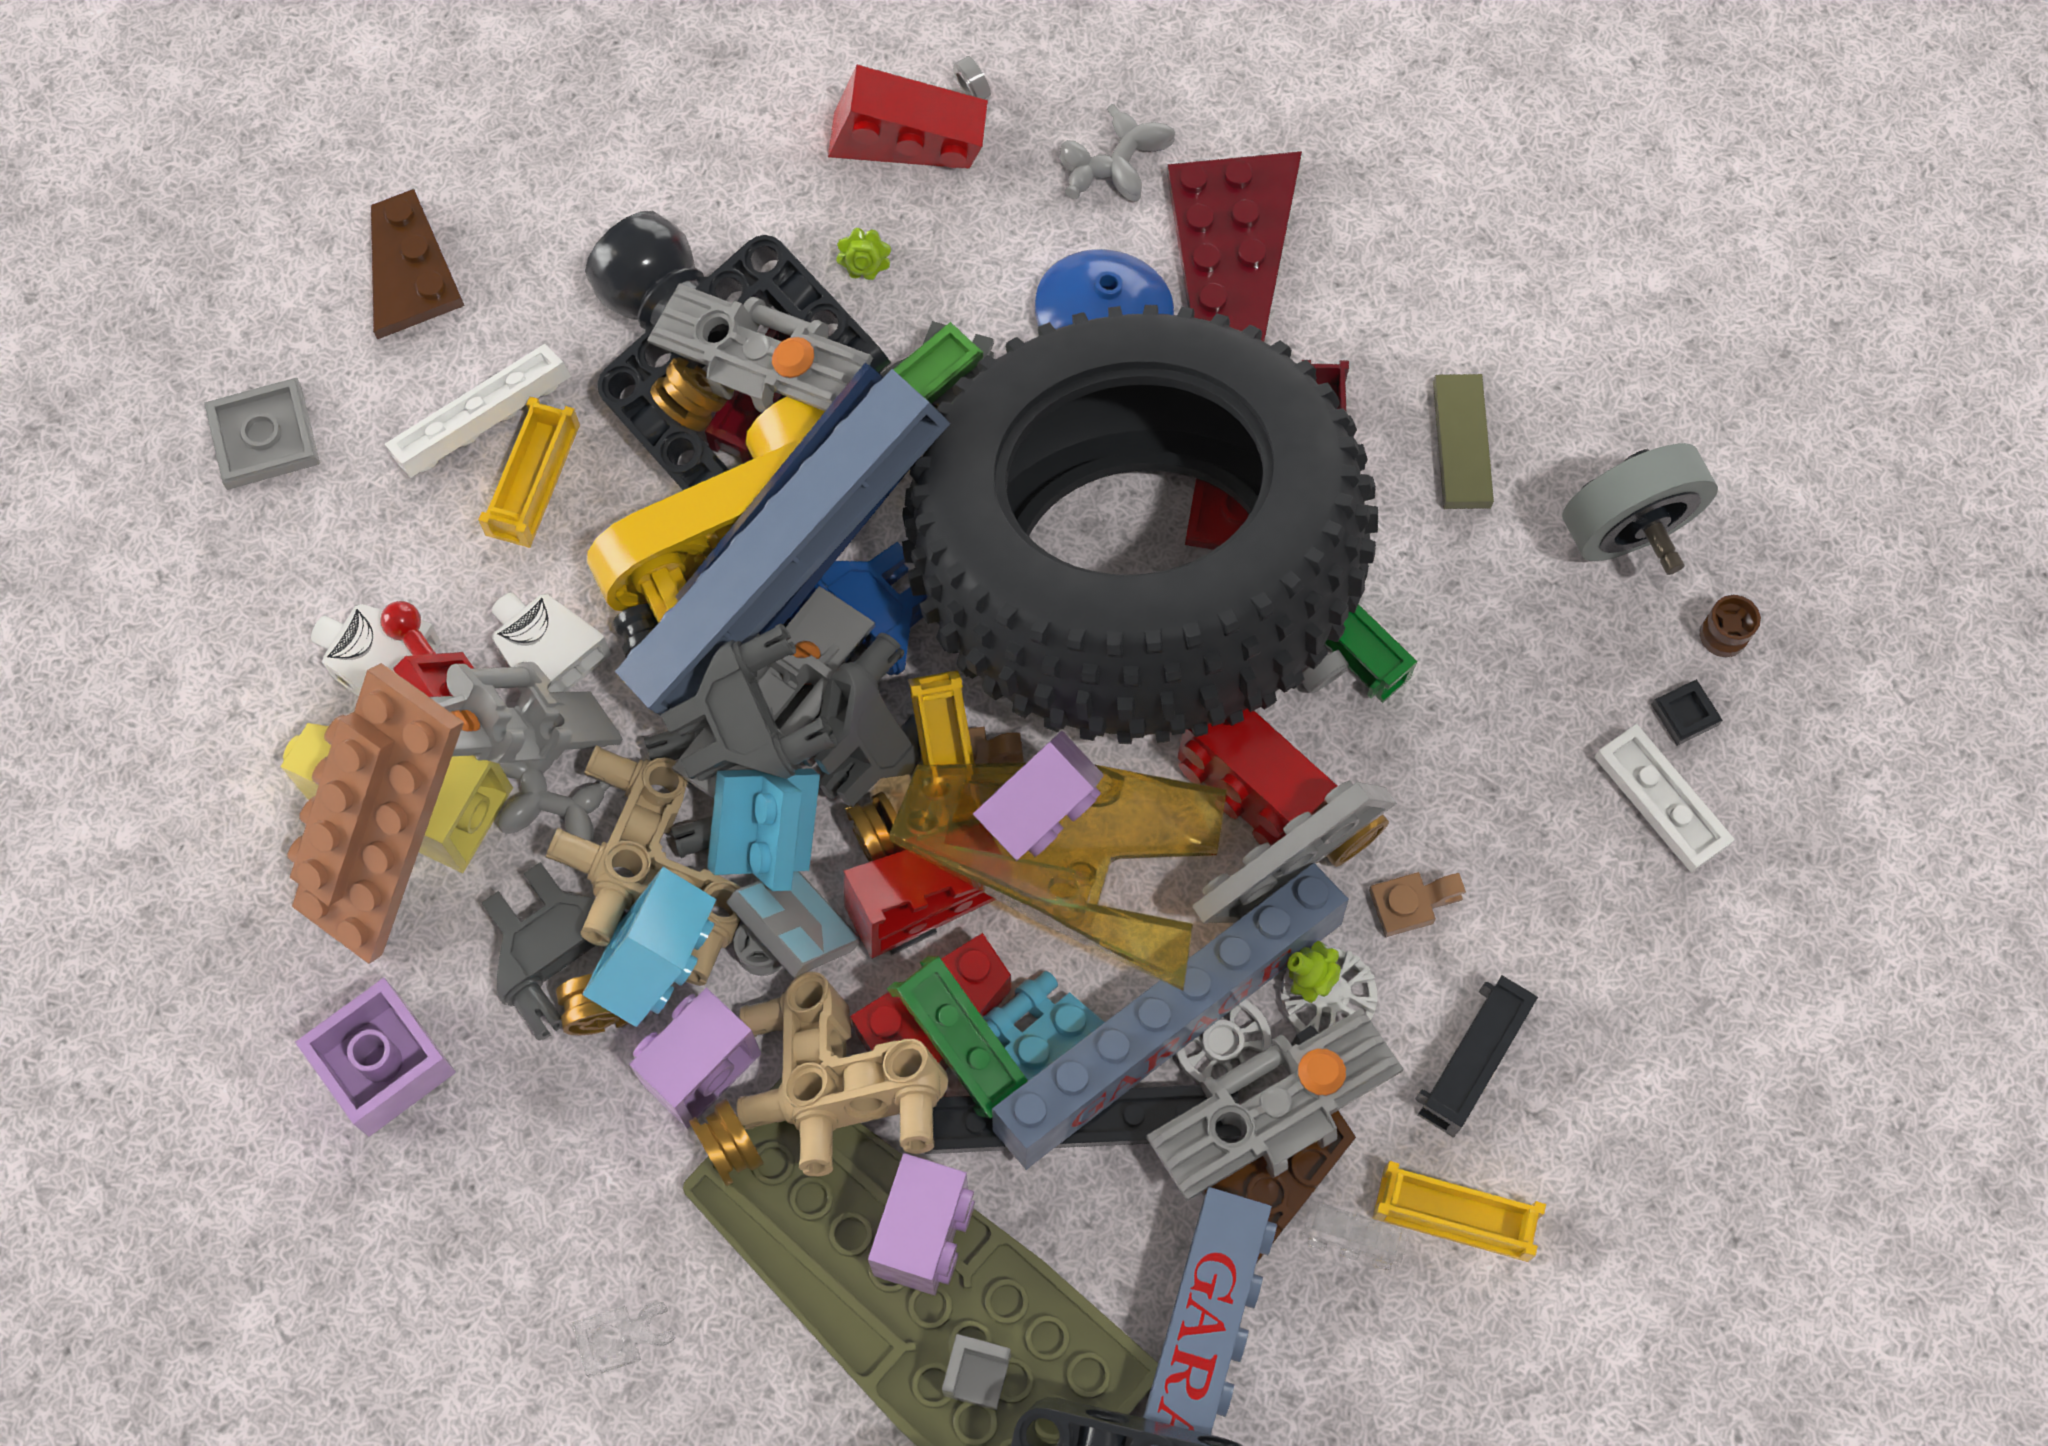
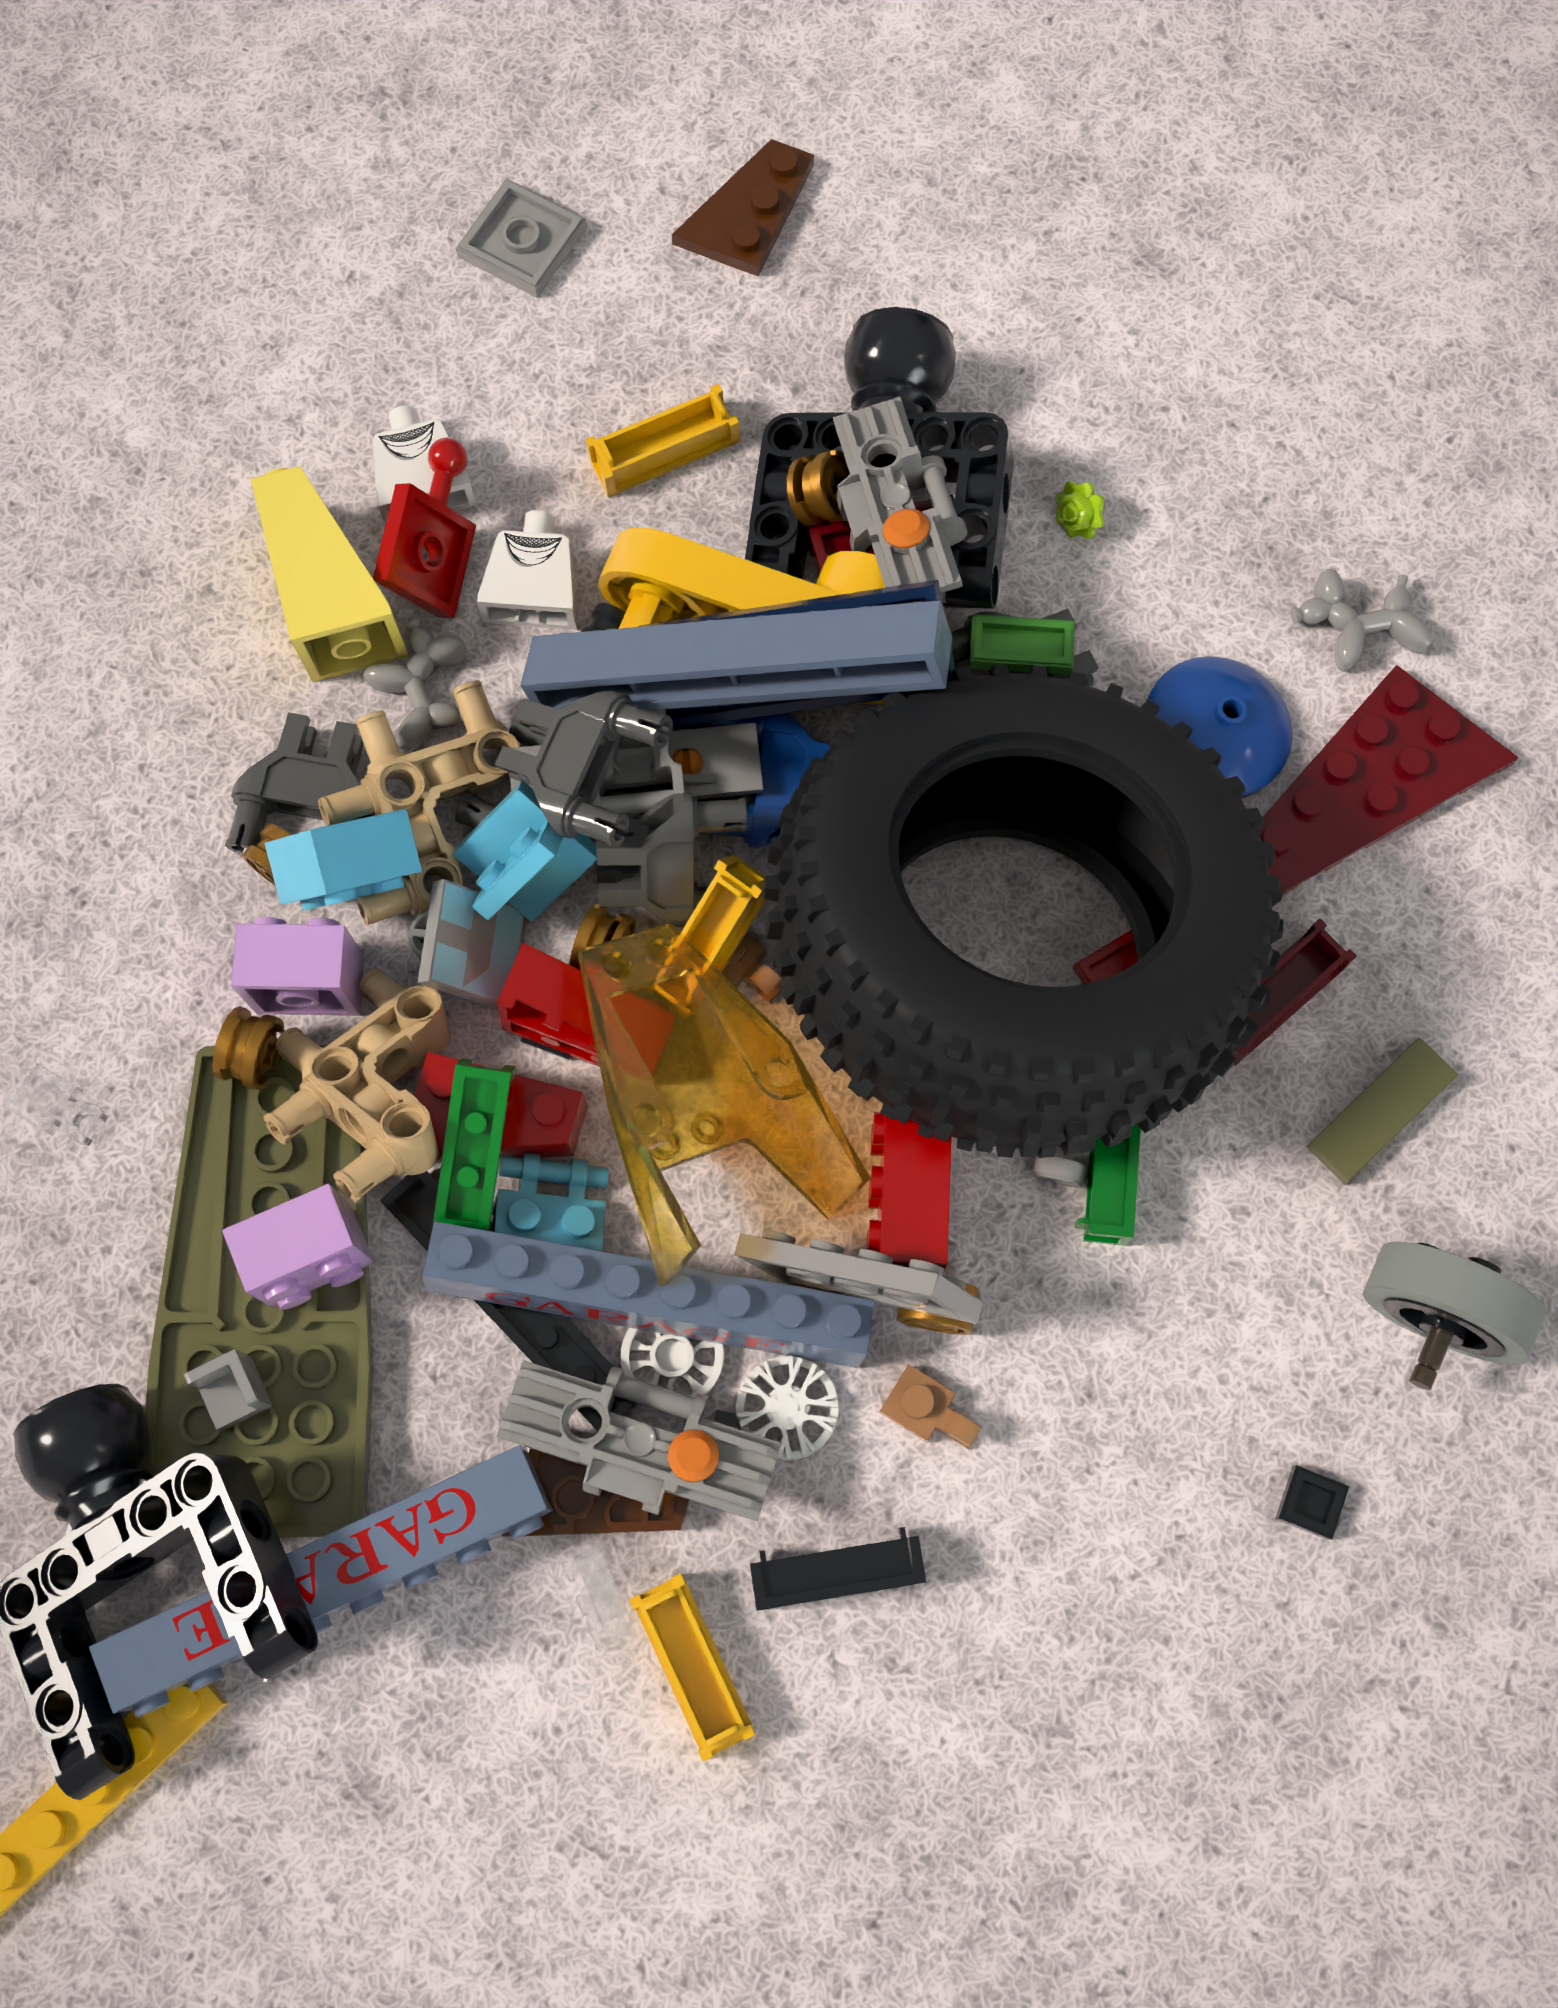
camera: 50 degrees right, 5 degrees up
(371, 810) = (263, 565): nougat plate -> none
(375, 1057) = (109, 747): lavender brick -> none
(477, 410) = (676, 361): white plate -> none
(526, 730) = (399, 582): light grey piece -> none
(906, 122) = (1225, 439): red wedge -> none
(971, 78) = (1315, 453): light grey tile -> none
(1034, 800) = (712, 1037): lavender brick -> none
(1314, 971) = (785, 1379): lime plant -> none
(1664, 798) = (1211, 1546): white plate -> none
(1735, 616) = (1436, 1473): reddish brown wheel -> none

